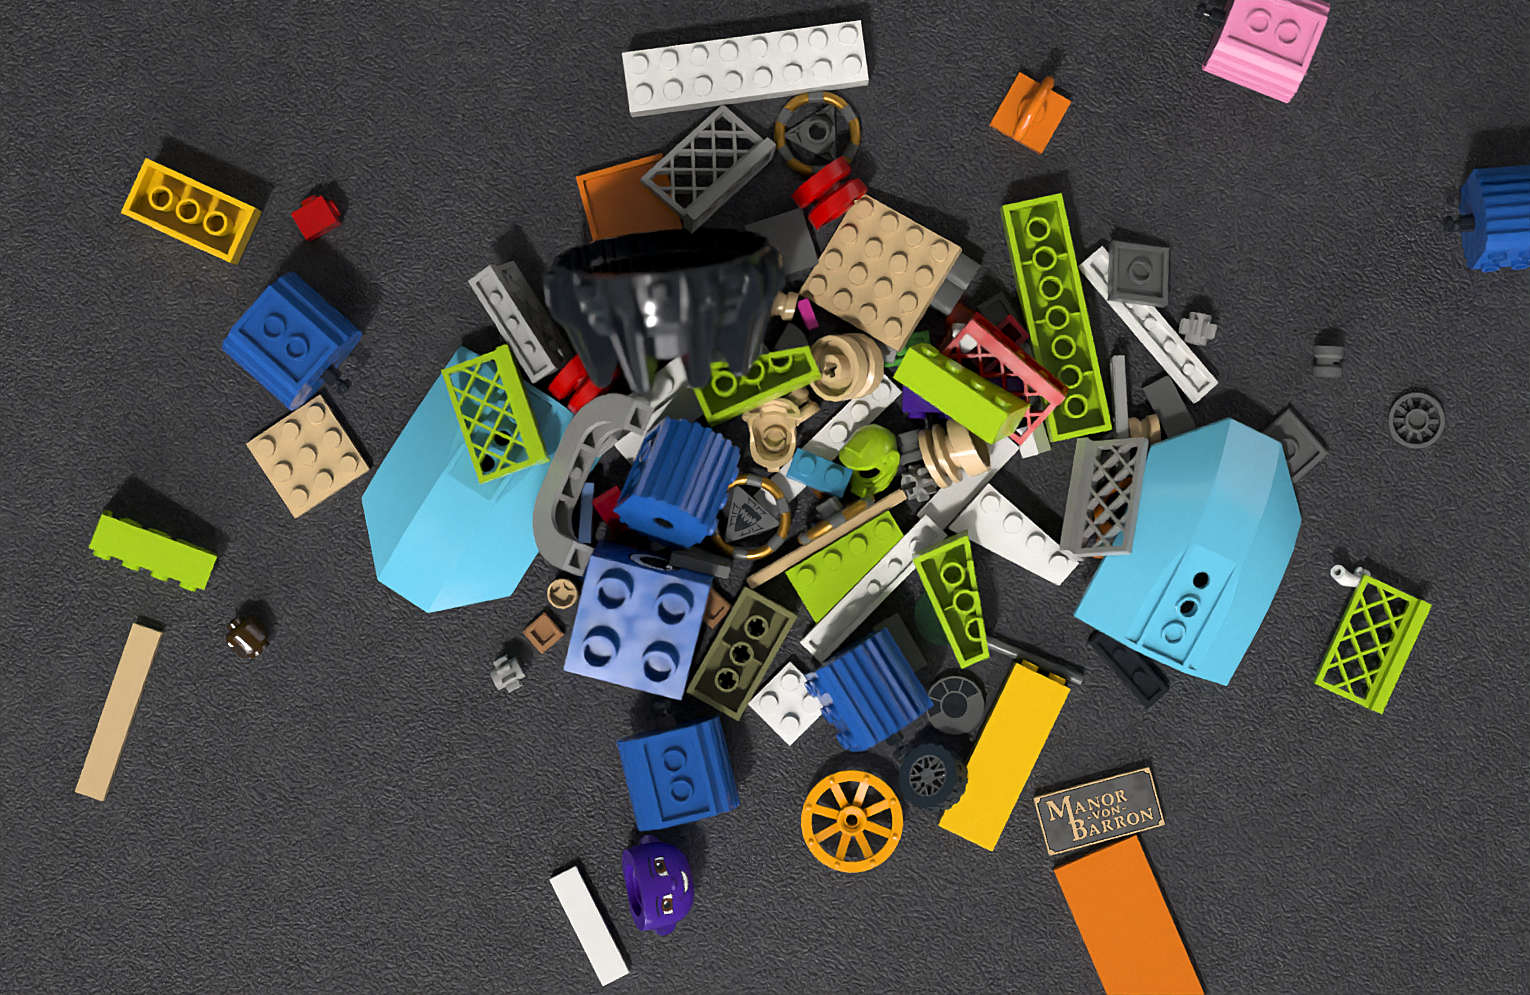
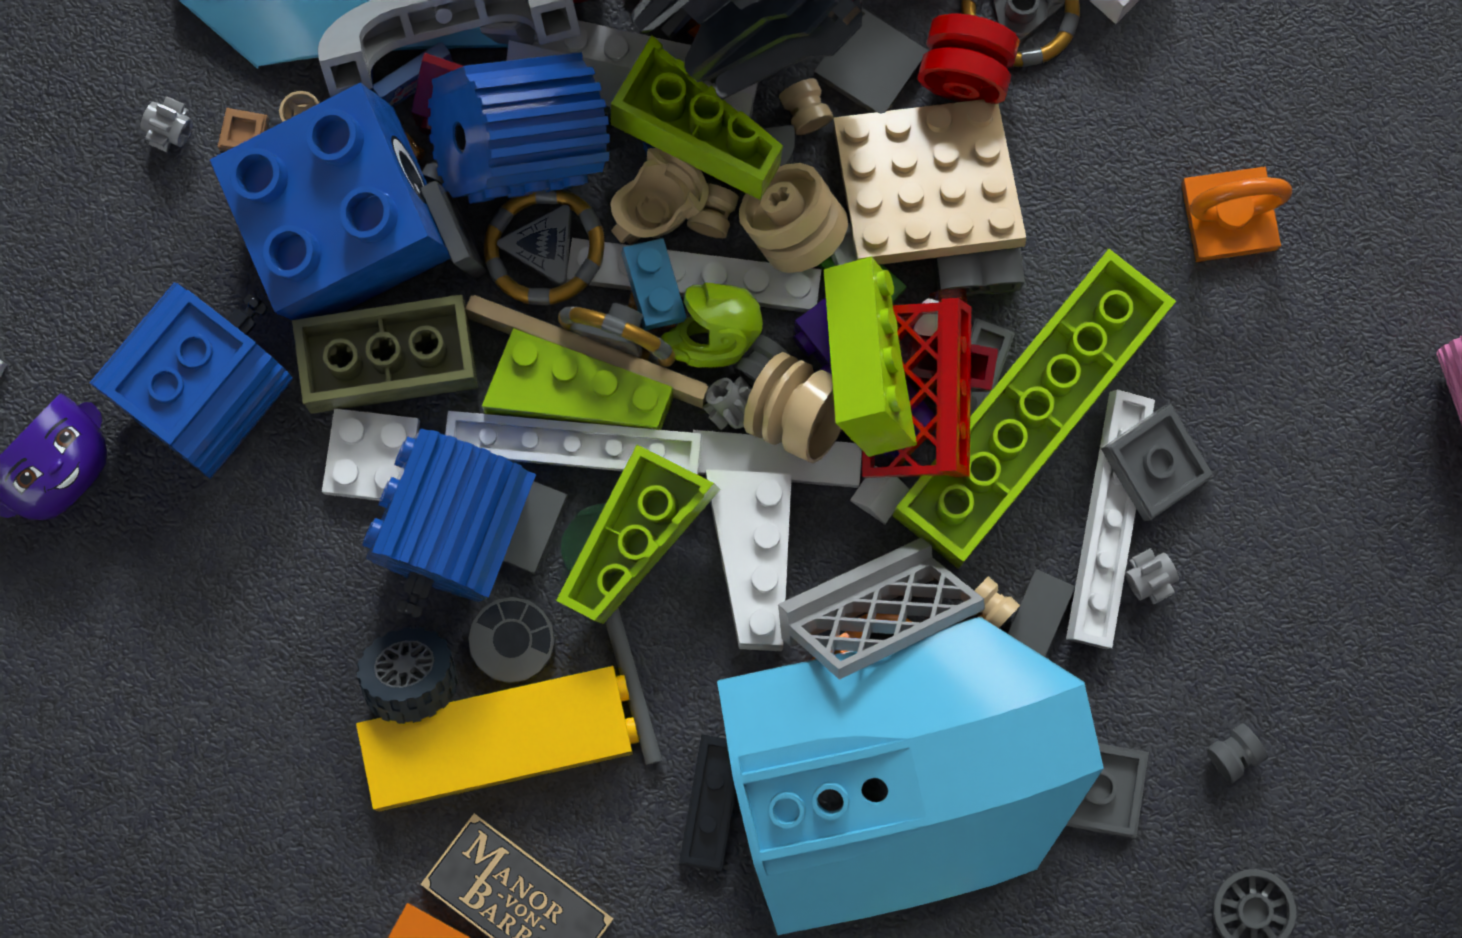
camera: 50 degrees right, 10 degrees down
(716, 608) = (415, 289): medium nougat tile -> none
(807, 315) = (818, 142): dark pink tile -> none
(812, 840) = (279, 615): light orange wheel -> none
(1119, 404) = (1002, 551): light grey tile -> none

